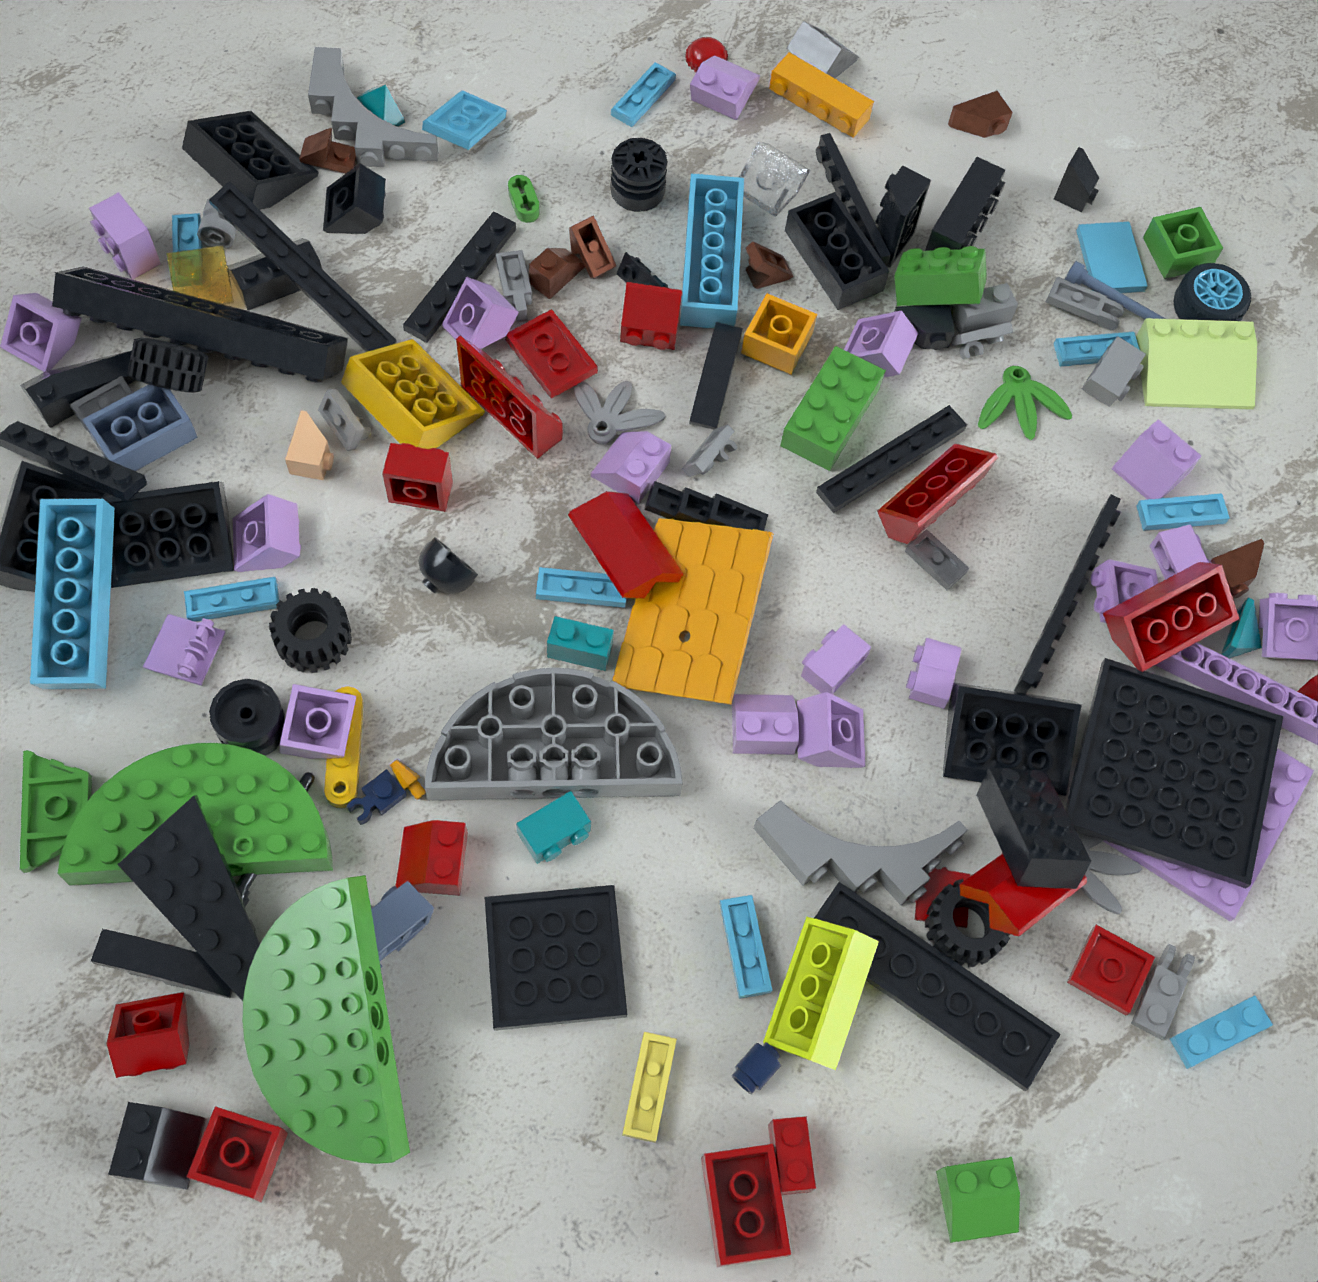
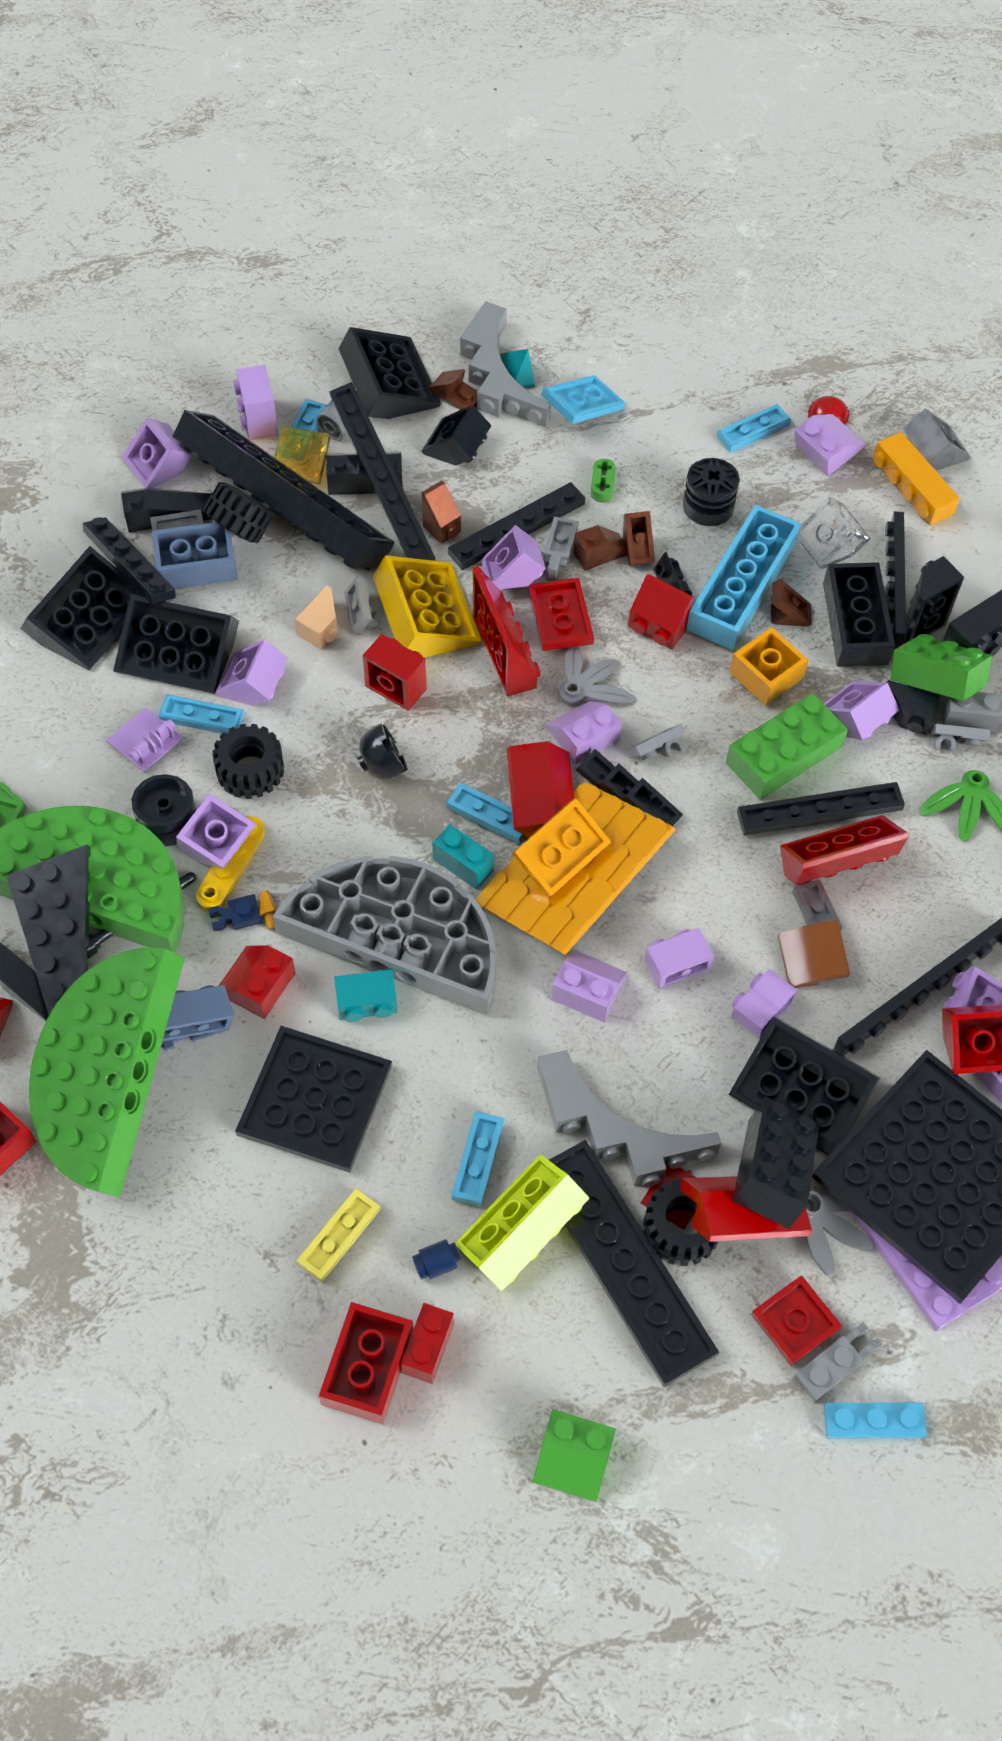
camera: 30 degrees right, 5 degrees down
(72, 594) = (77, 661): medium azure brick -> none
(380, 290) = (440, 513): none -> copper slope
(679, 597) = (561, 847): none -> light orange plate
(716, 376) = (694, 682): black slope -> none
(830, 732) = (643, 1015): lavender slope -> none
(956, 605) = (813, 954): none -> dark orange slope

